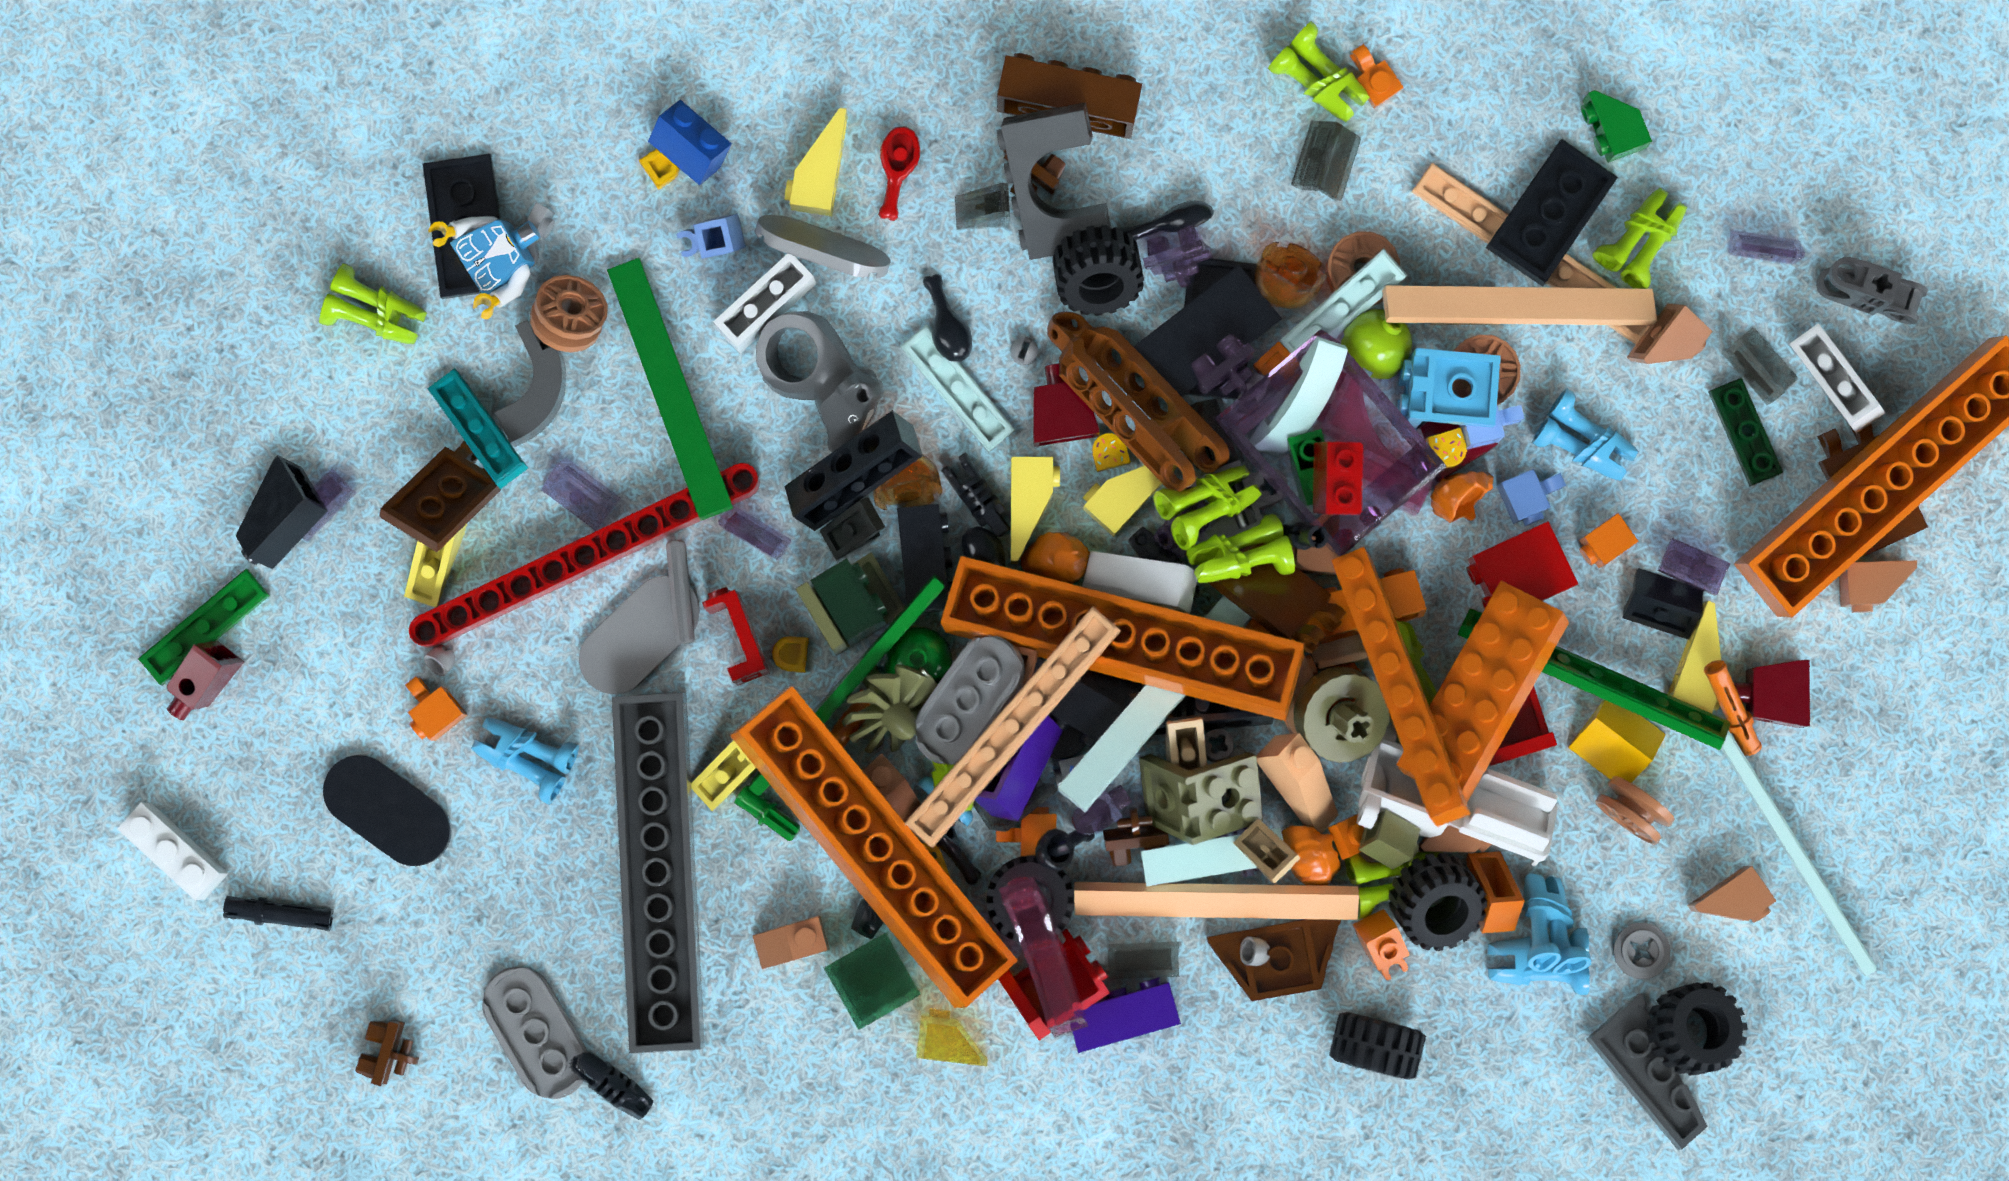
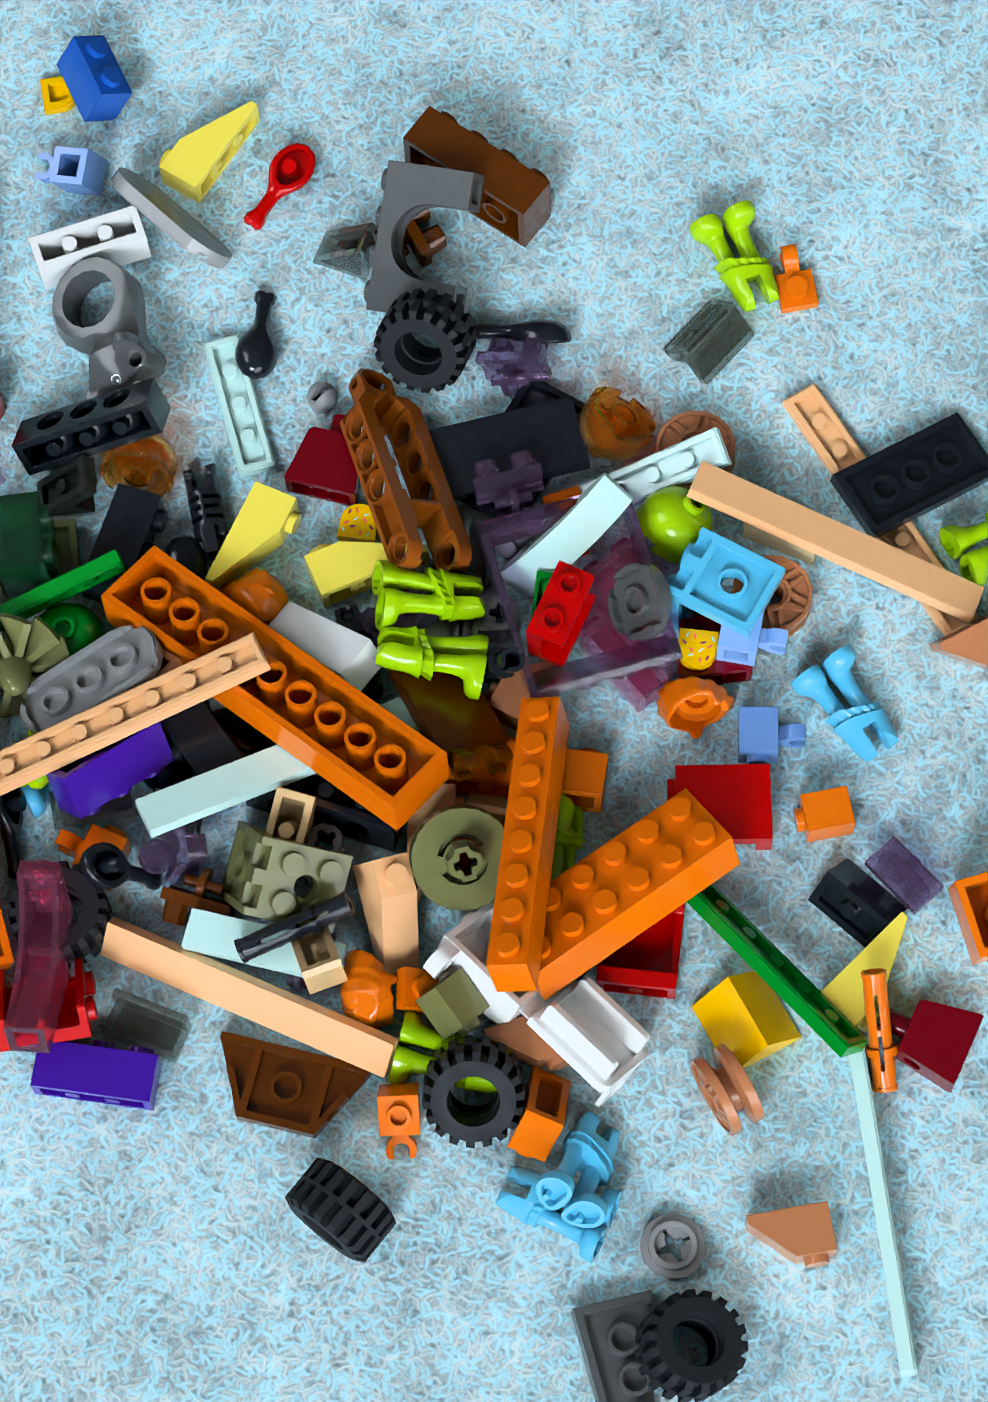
camera: 30 degrees right, 15 degrees down
(1248, 826) = (337, 907): none -> black pin
(1254, 951) = (262, 1062): light grey hinge -> none
(1389, 432) = (639, 601): none -> dark grey tile

